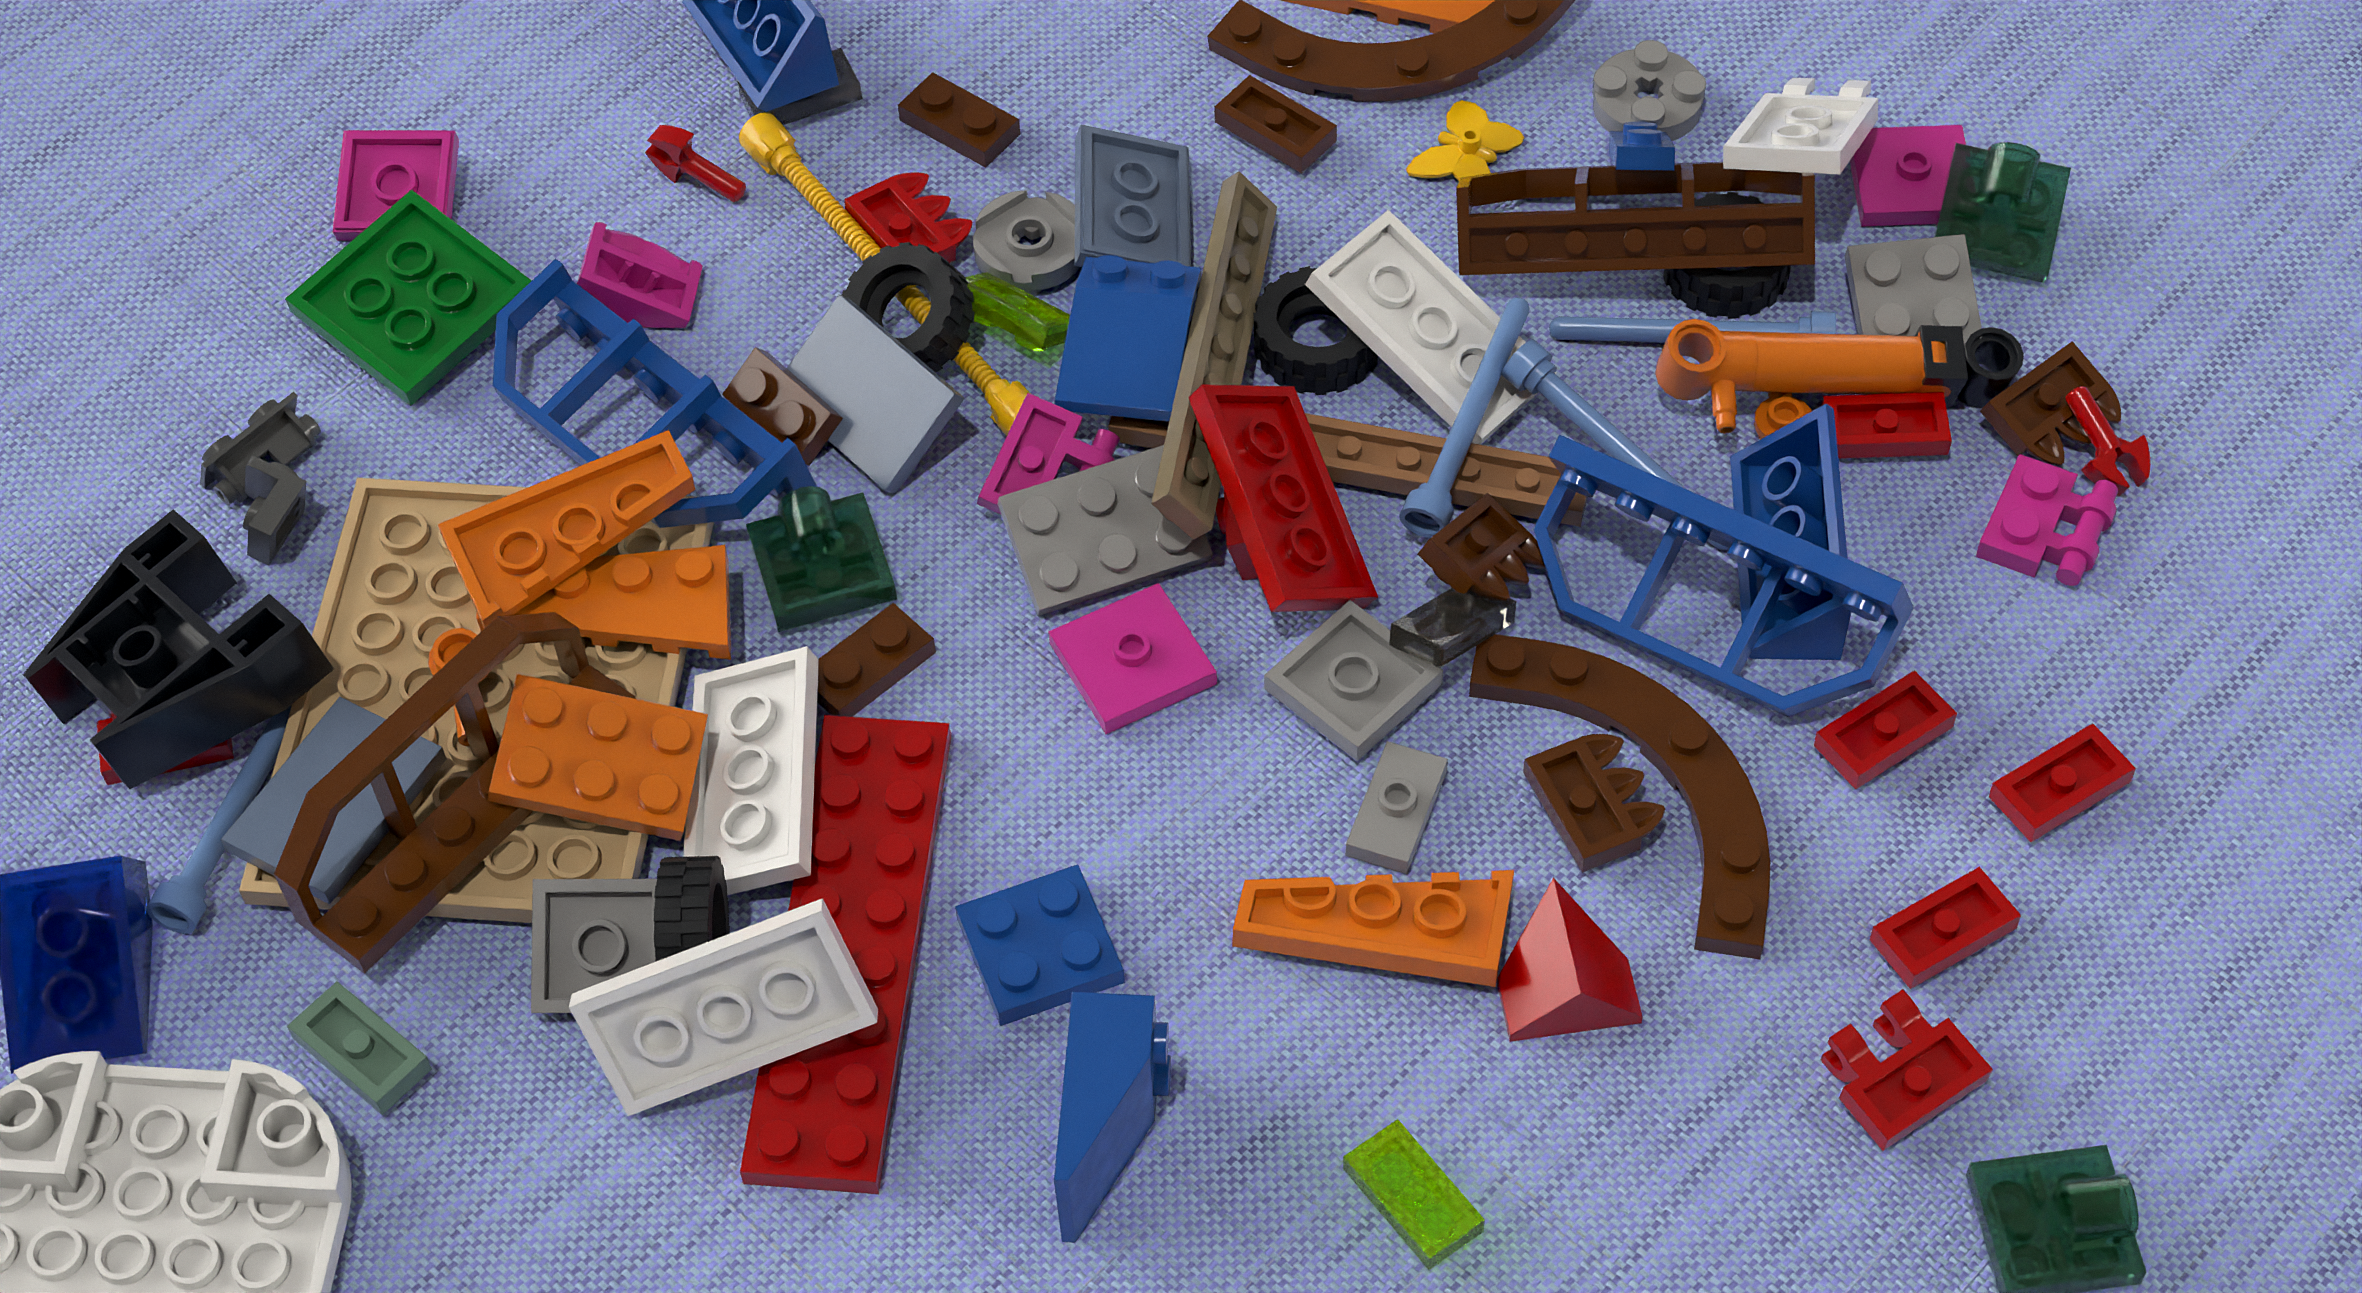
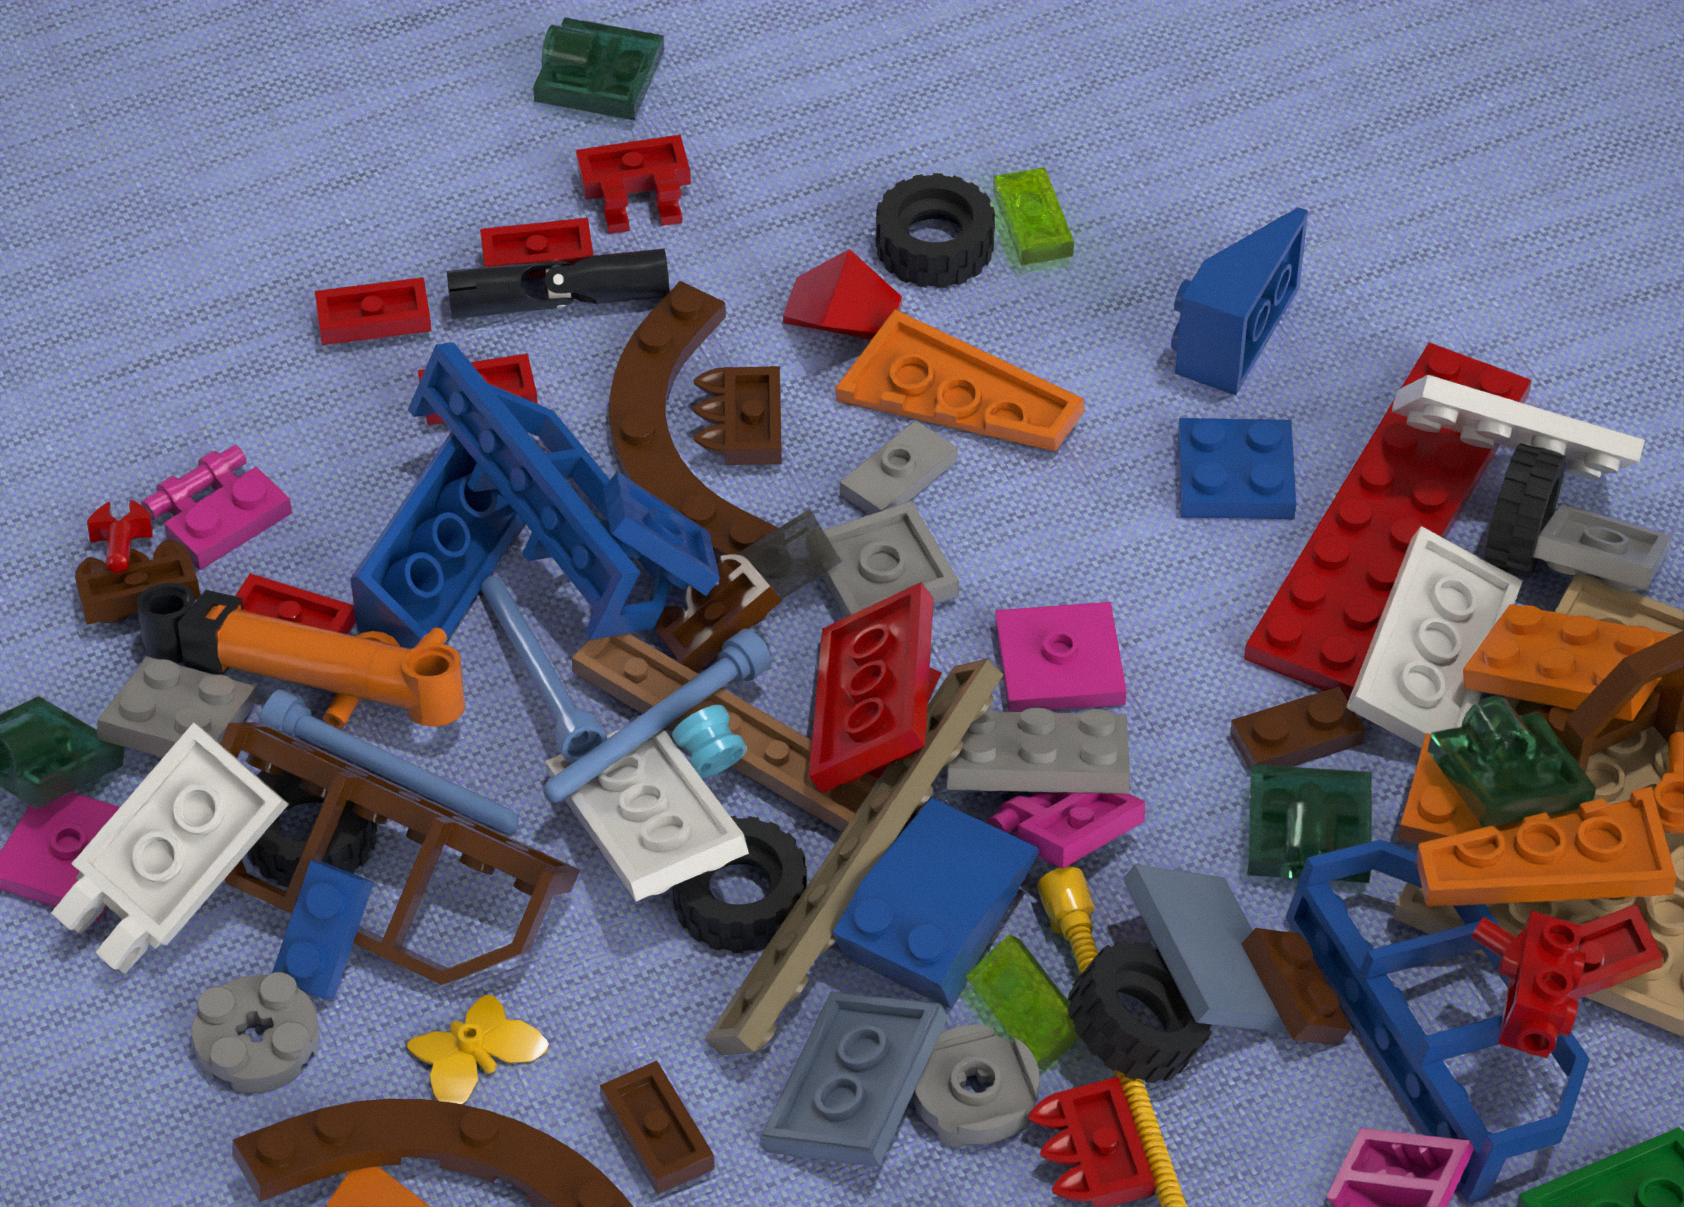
camera: 160 degrees left, 5 degrees down
(508, 471) = (1616, 950): none -> red plate
(544, 381) = (1541, 975): none -> red brick
(626, 595) = (1509, 765): none -> clear green plate
(1407, 401) = (709, 741): none -> medium azure wheel
(1506, 1177) = (935, 262): none -> black tyre
(1570, 556) = (656, 530): none -> blue plate
(1910, 874) = (592, 280): none -> black piece

